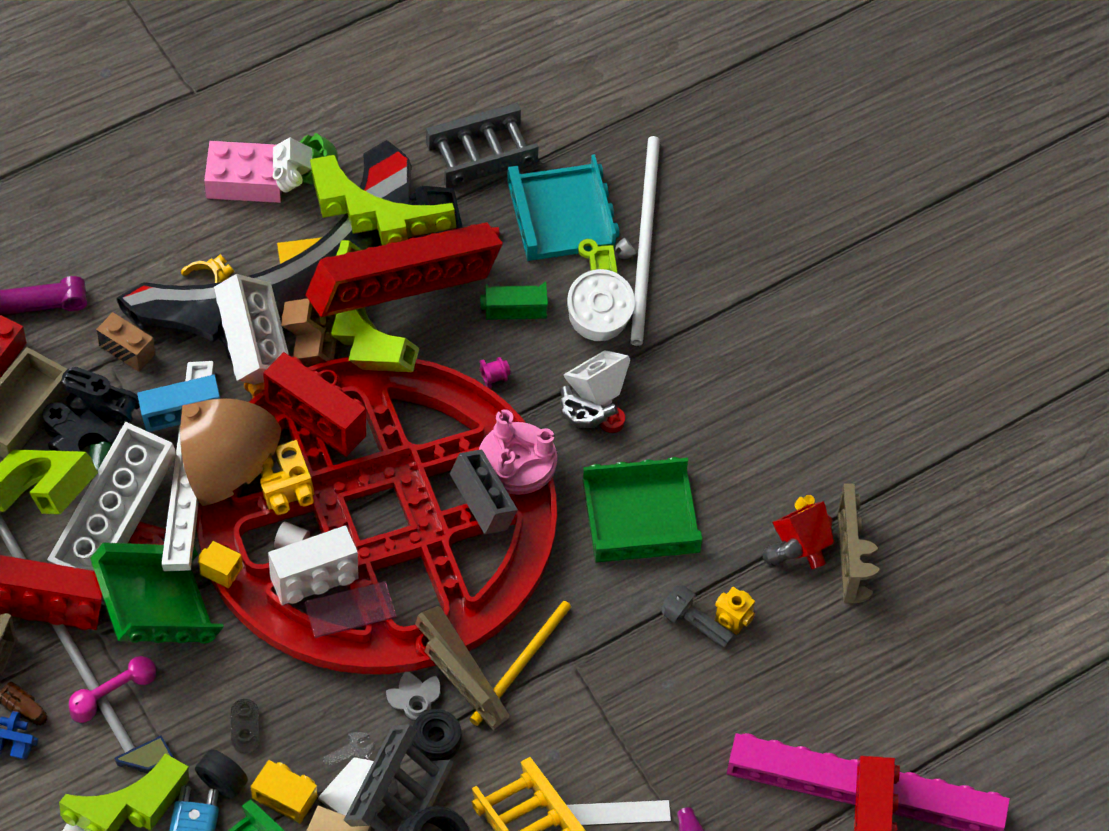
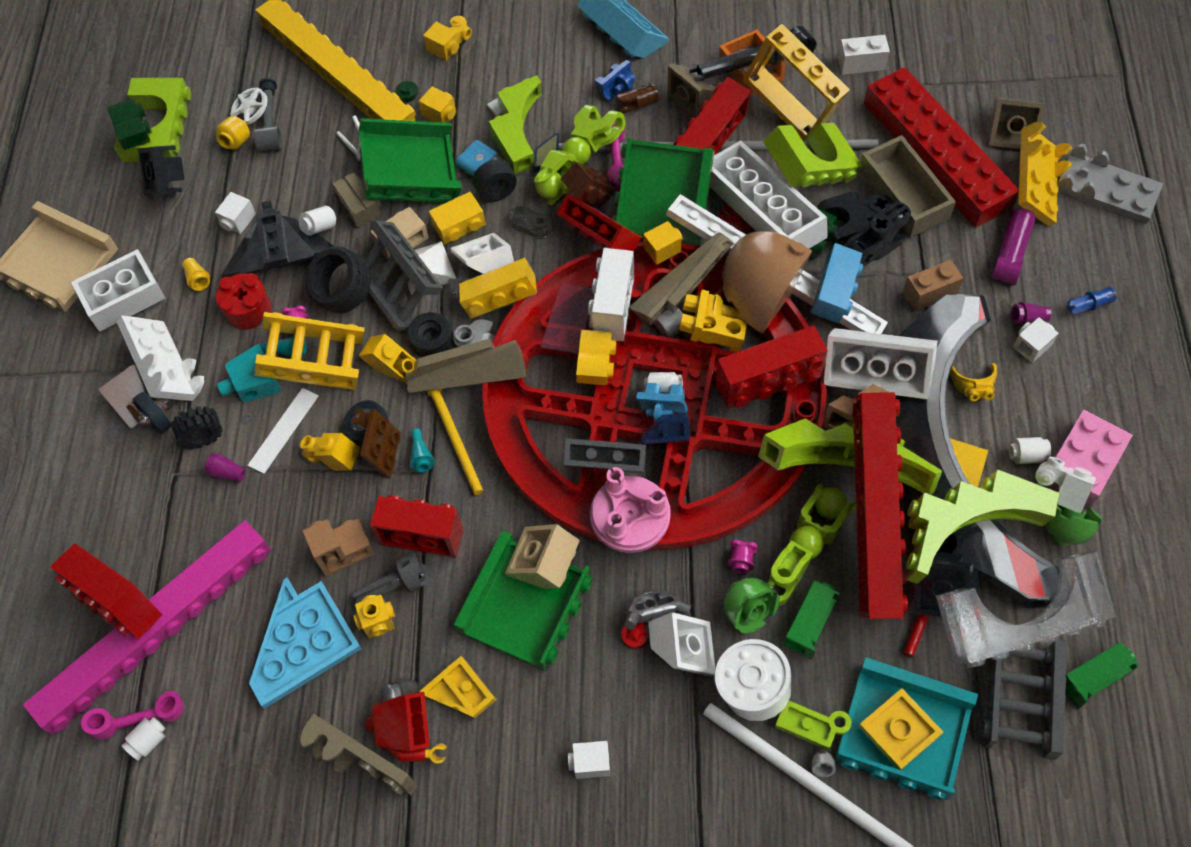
camera: 130 degrees right, 5 degrees up
(69, 221) = (1091, 300): none -> blue axle
(112, 262) = (1026, 312): none -> magenta cone
(138, 713) = (586, 138): none -> lime piece
(140, 246) = (1035, 339): none -> white brick
(179, 676) = (588, 184): none -> copper brick
(231, 632) = (597, 225): none -> red brick
(252, 517) = (682, 280): none -> dark tan wedge
(260, 213) = (1029, 450): none -> white brick
(317, 733) = (484, 253): none -> white slope
(355, 689) = (497, 288): none -> yellow brick
(371, 499) = (664, 379): none -> white brick
(386, 556) = (594, 357): none -> yellow brick
(391, 470) = (660, 404): none -> dark azure hips
(423, 464) = (667, 429): none -> dark blue tile
(431, 105) = (1099, 673): none -> green window
(465, 170) = (1079, 602): none -> clear arch
(478, 326) = (810, 537): none -> lime piece
(486, 755) = (387, 357): none -> yellow slope
(533, 345) = (750, 603): none -> bright green cylinder
(566, 667) = (421, 458): none -> teal cone
(566, 727) = (369, 426): none -> reddish brown plate
(567, 206) = (900, 729): none -> yellow plate
(598, 509) = (543, 556): none -> tan slope
(614, 738) = (331, 449): none -> yellow brick
(638, 617) = (417, 526): none -> red brick
(696, 676) = (339, 546): none -> medium nougat brick
(733, 395) = (589, 760): none -> white brick
(745, 516) = (460, 689): none -> yellow wing
(794, 658) = (300, 642): none -> medium azure wing
(954, 723) = (144, 738): none -> white brick
(969, 765) = (102, 725): none -> dark pink piece

